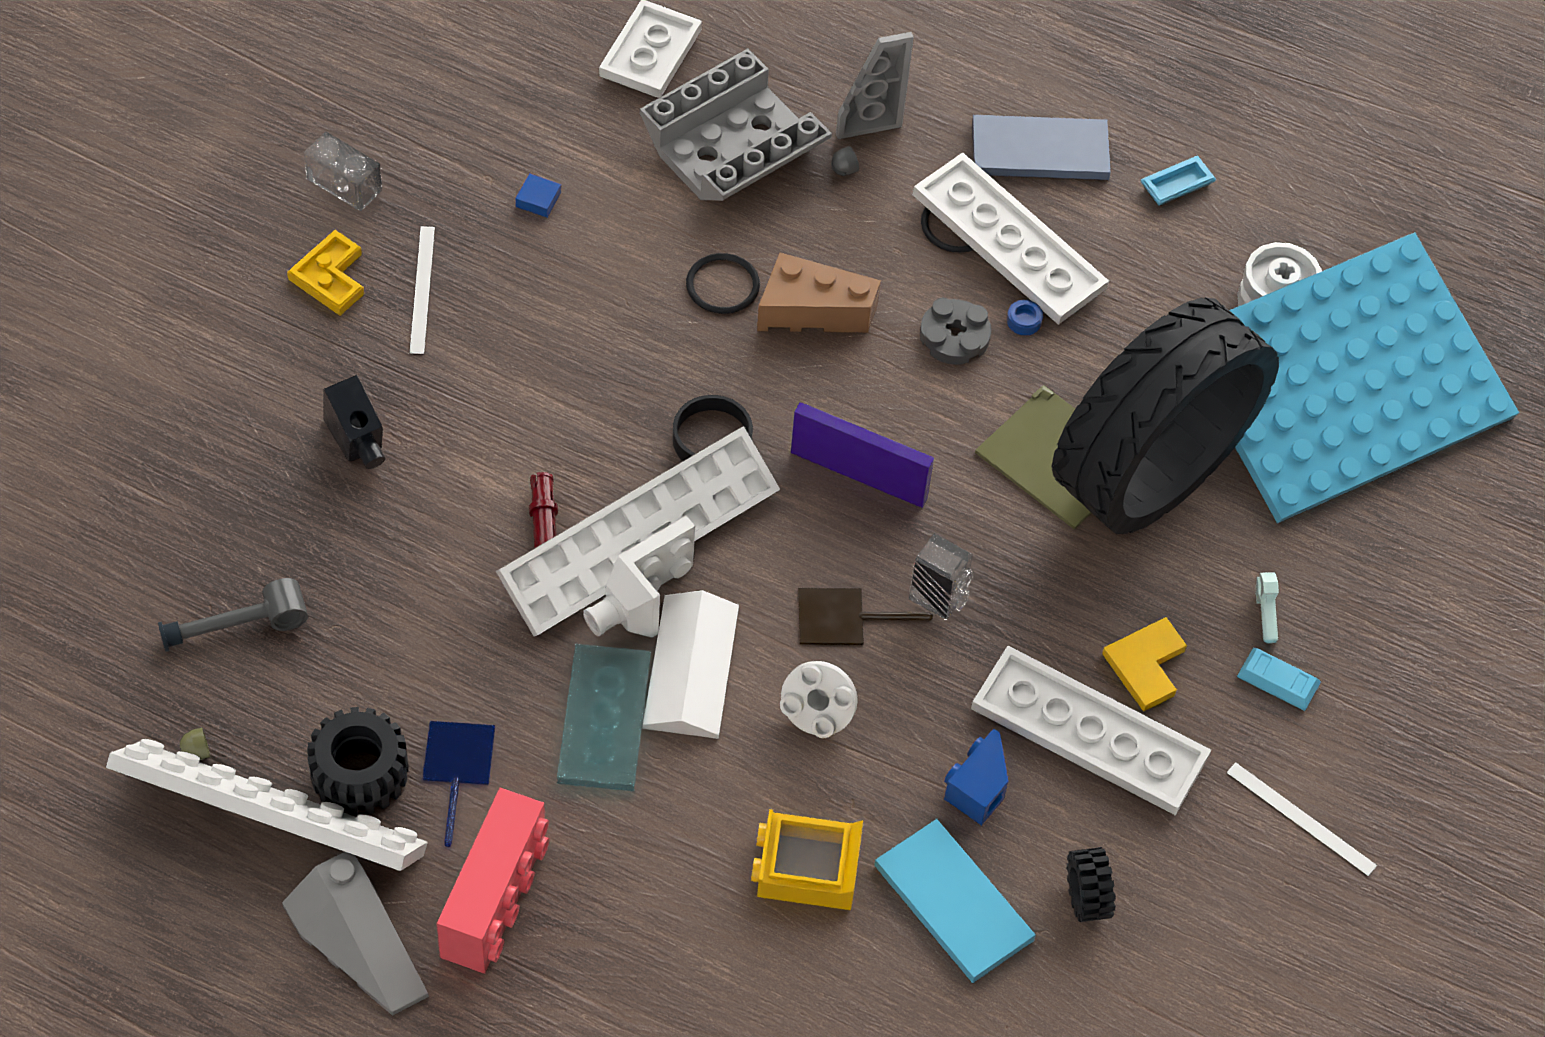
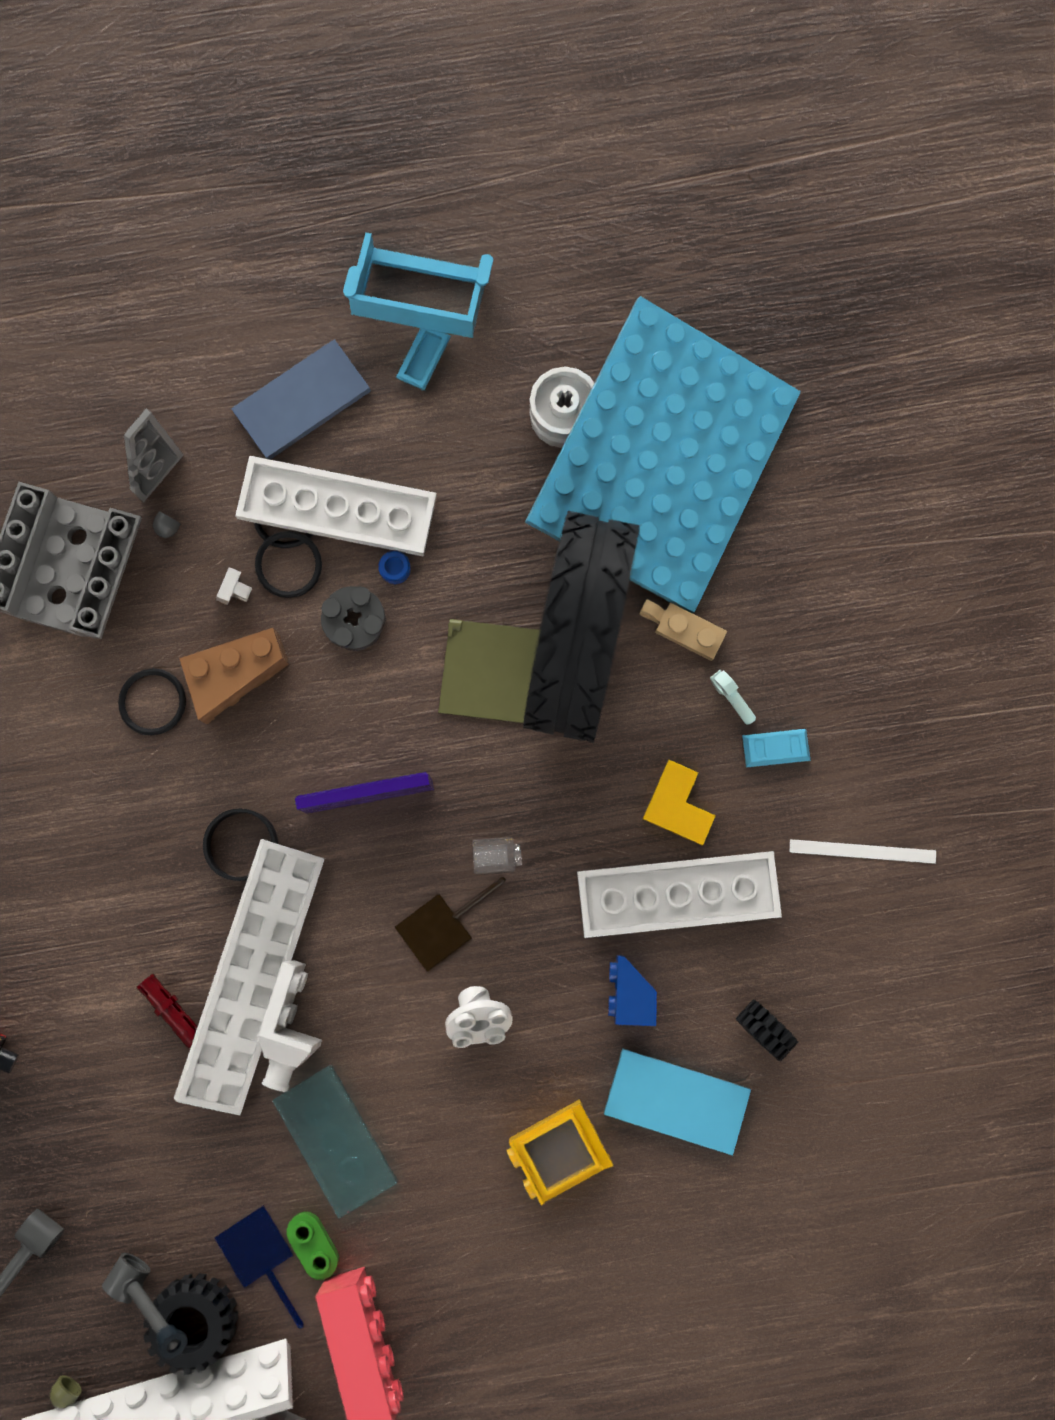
camera: 30 degrees left, 25 degrees up
(333, 692) = (126, 1284): none -> dark grey piece
(517, 780) = (315, 1245): none -> bright green plate
(691, 664) = (365, 1051): white slope -> none
(866, 240) = (231, 587): none -> white tile
(929, 228) = (258, 561): none -> black tyre
(1194, 139) = (412, 314): none -> medium azure piece
(1262, 527) = (685, 628): none -> tan plate

